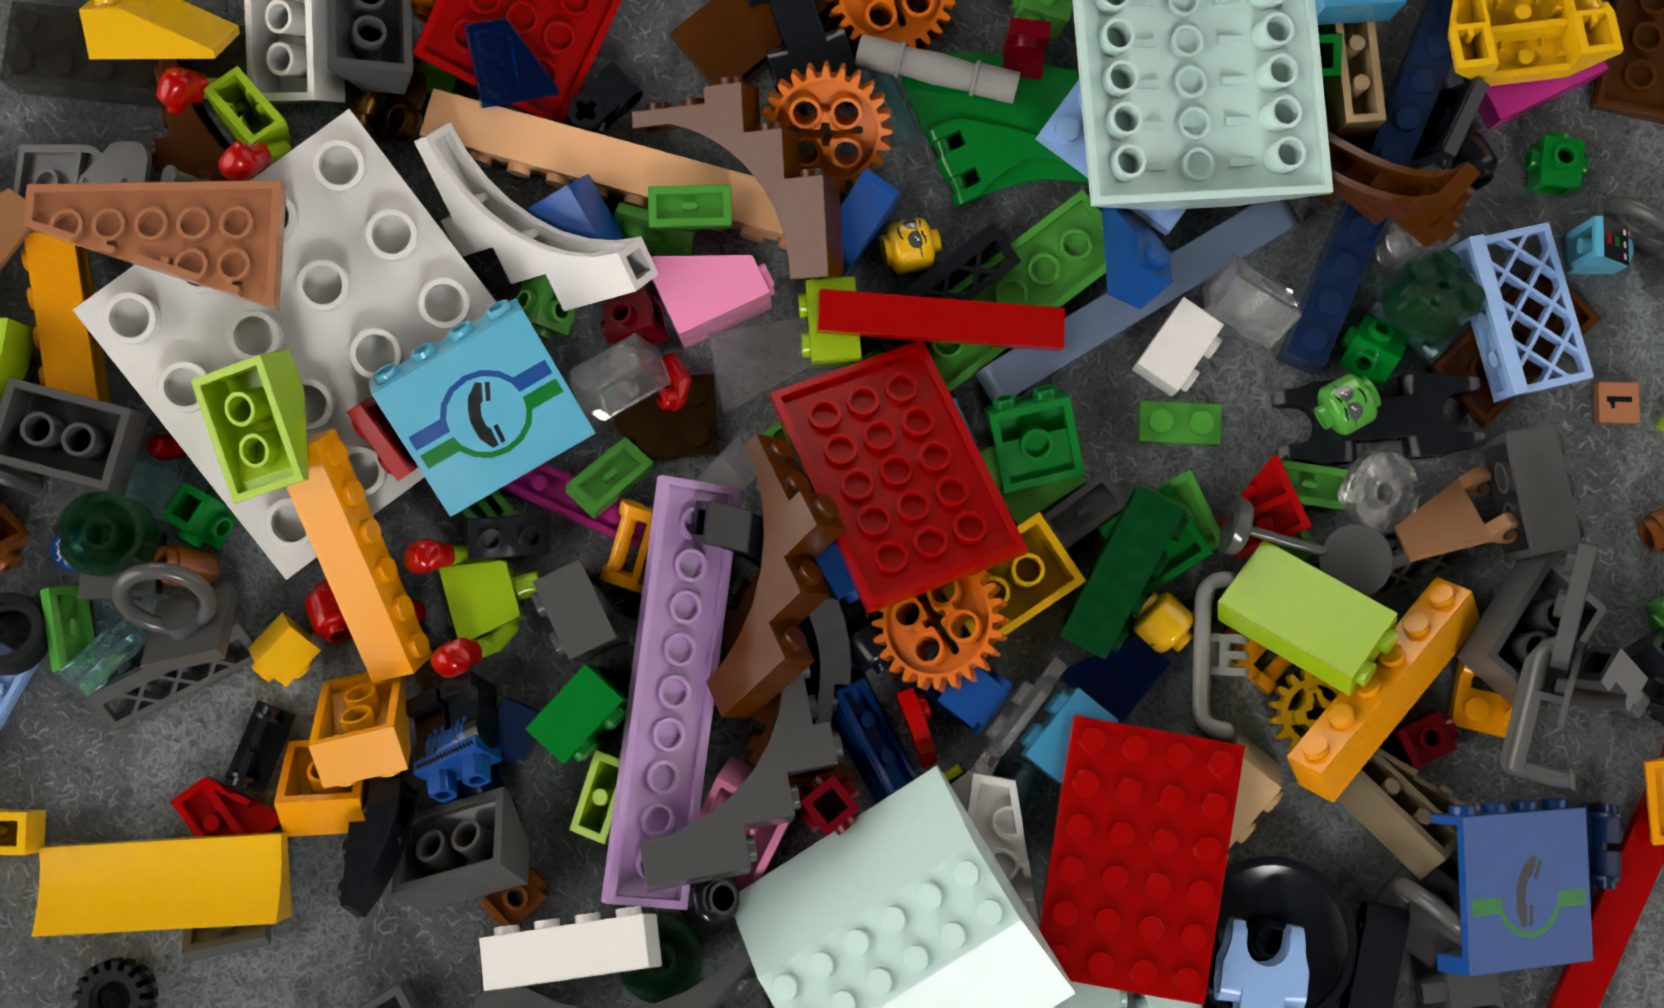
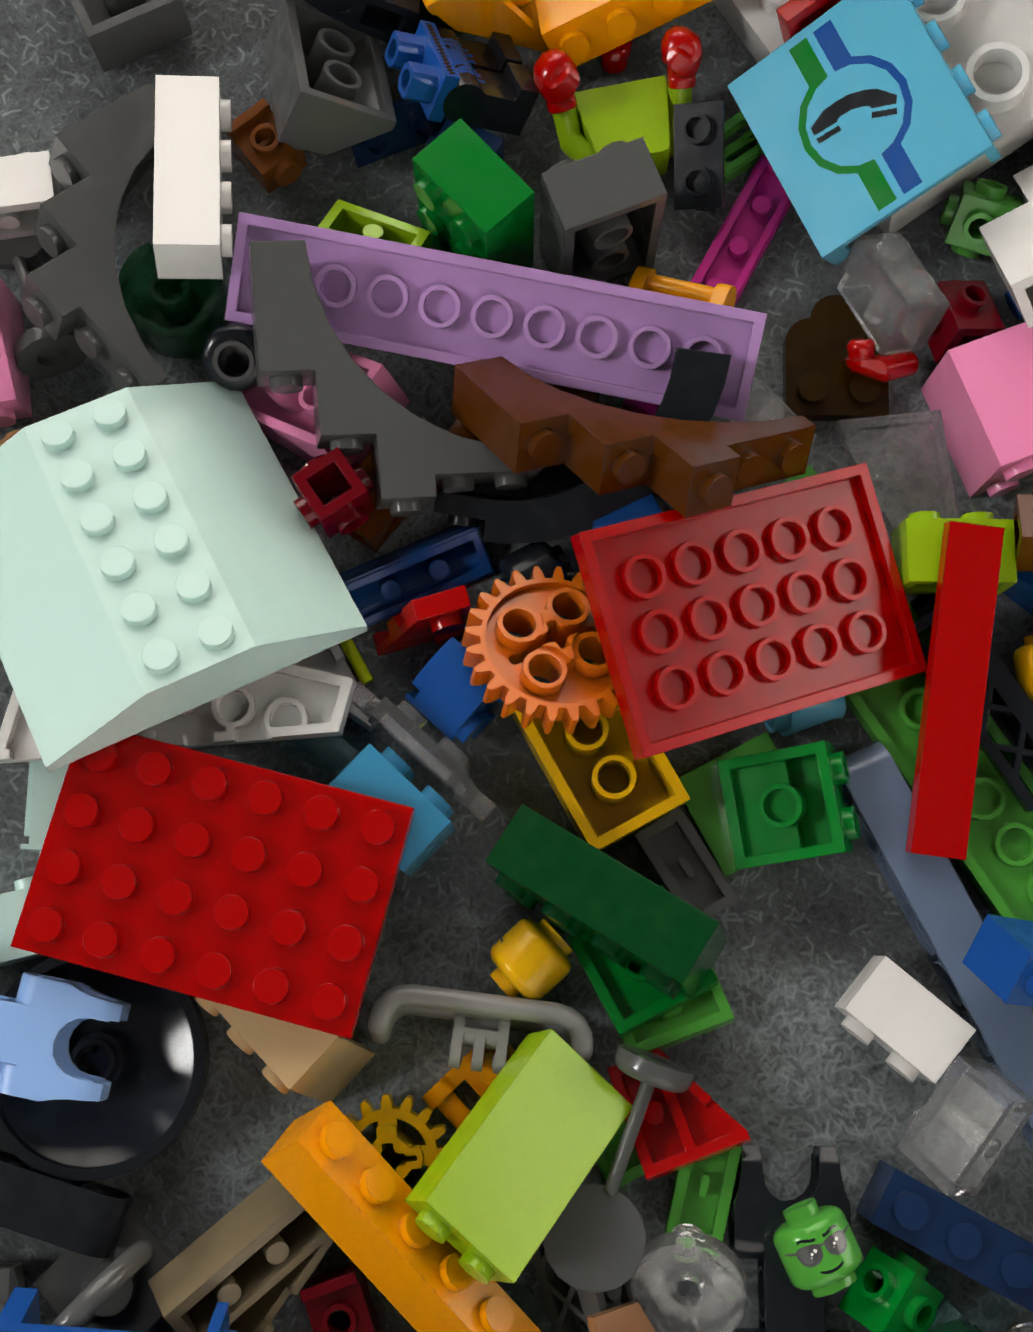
camera: 100 degrees right, 5 degrees down
(609, 477) = (764, 279): bright green plate -> none
(1119, 679) = (460, 892): clear blue wing -> none
(1179, 423) = (797, 1013): bright green plate -> none

